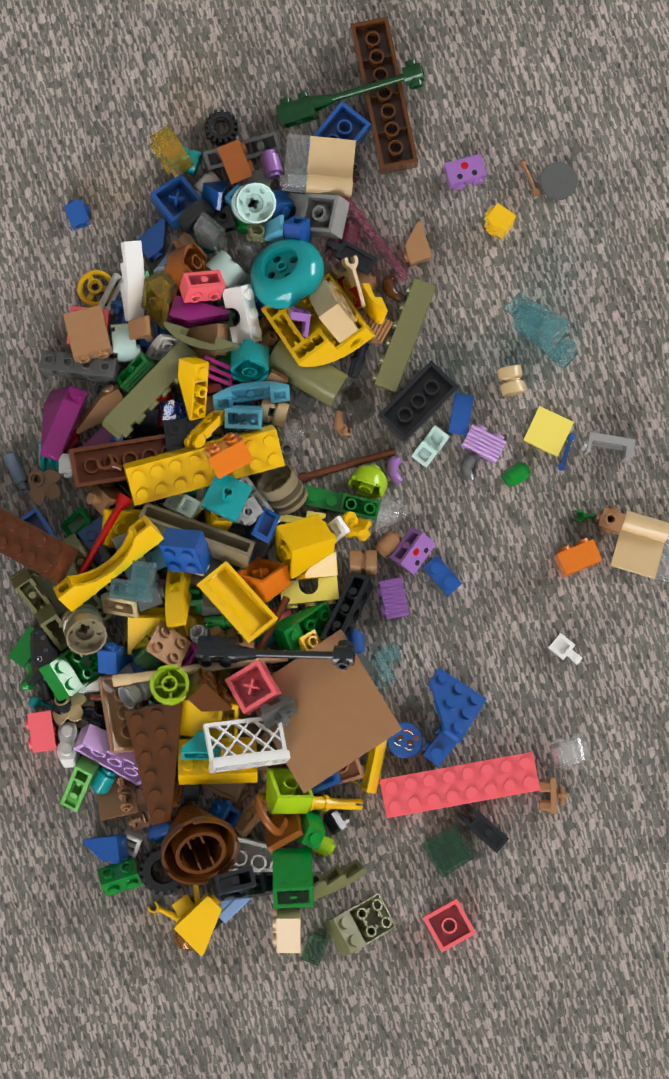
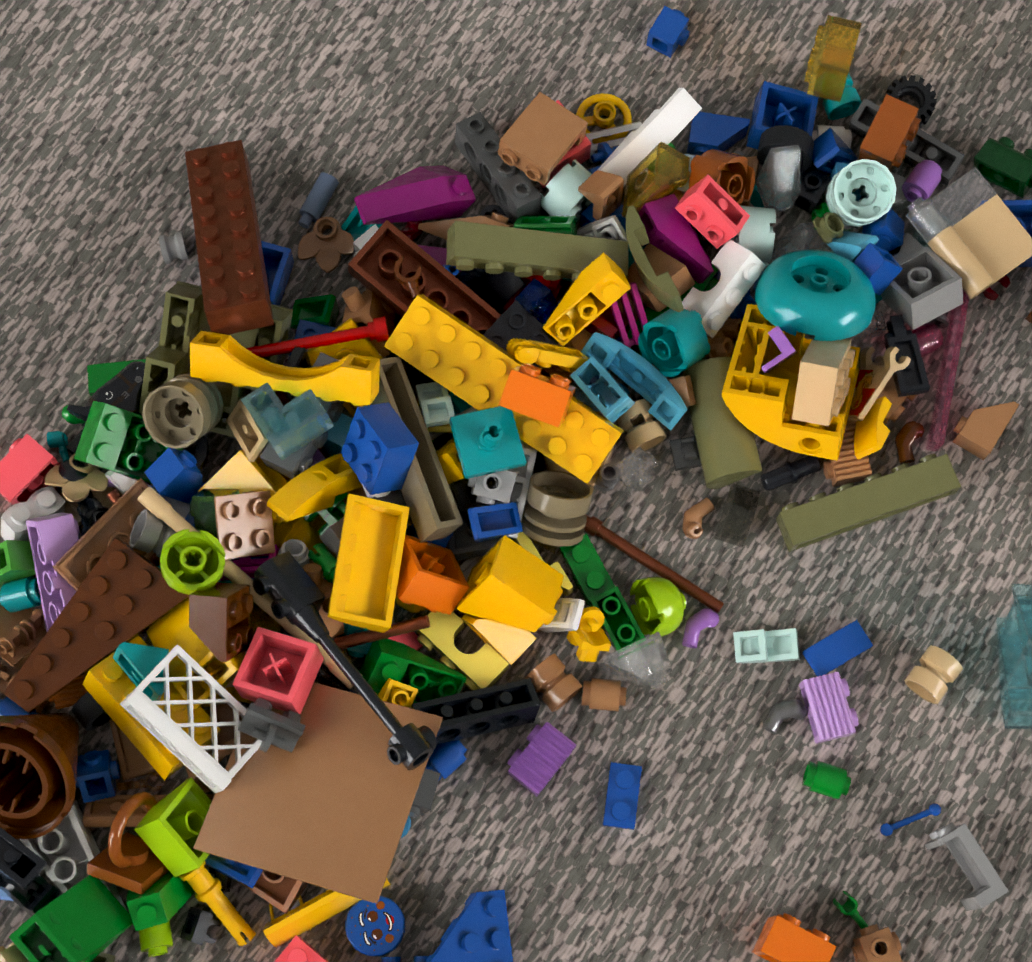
camera: 45 degrees right, 10 degrees down
(383, 658) = (457, 810): clear light blue brick -> none
(412, 550) = (620, 731): medium lavender brick -> none
(418, 402) = (805, 583): black brick -> none
(548, 431) = (914, 775): light yellow tile -> none

